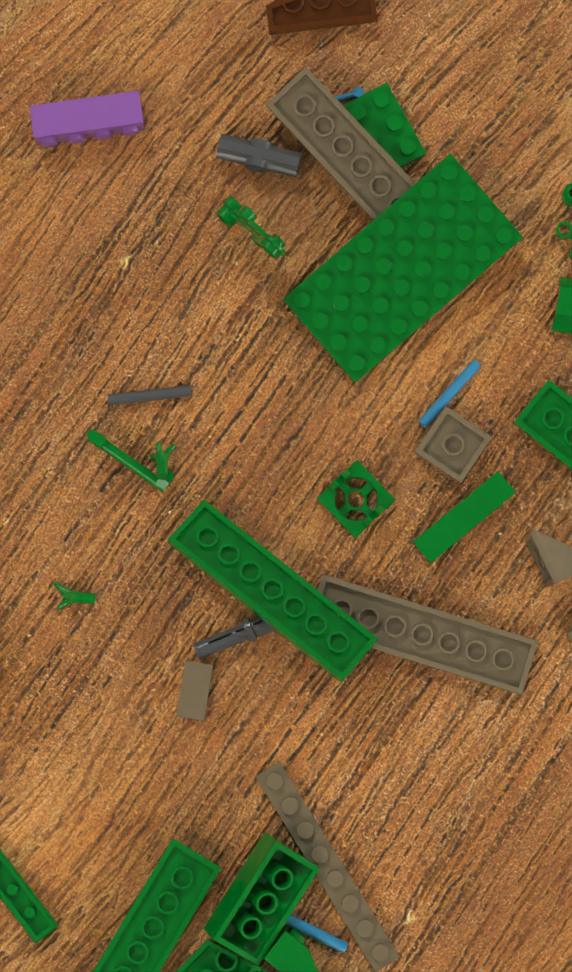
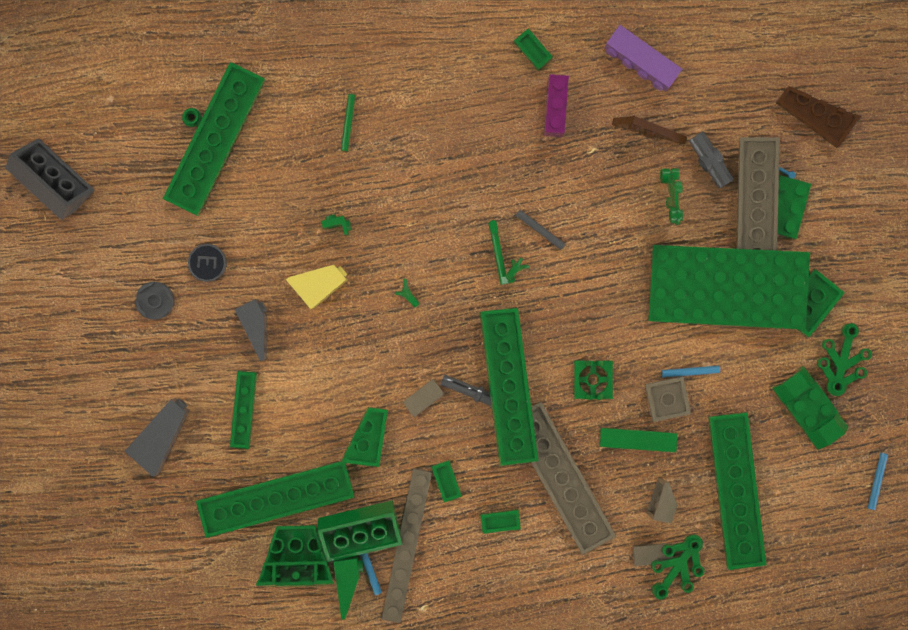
camera: 40 degrees right, 5 degrees up
(42, 251) = (556, 105): none -> magenta brick
(162, 184) = (648, 129): none -> reddish brown wing
(176, 791) = (368, 439): none -> green wing
(303, 756) = (446, 481): none -> green tile
(402, 743) = (500, 521): none -> green tile
(511, 192) = (820, 300): none -> green plate

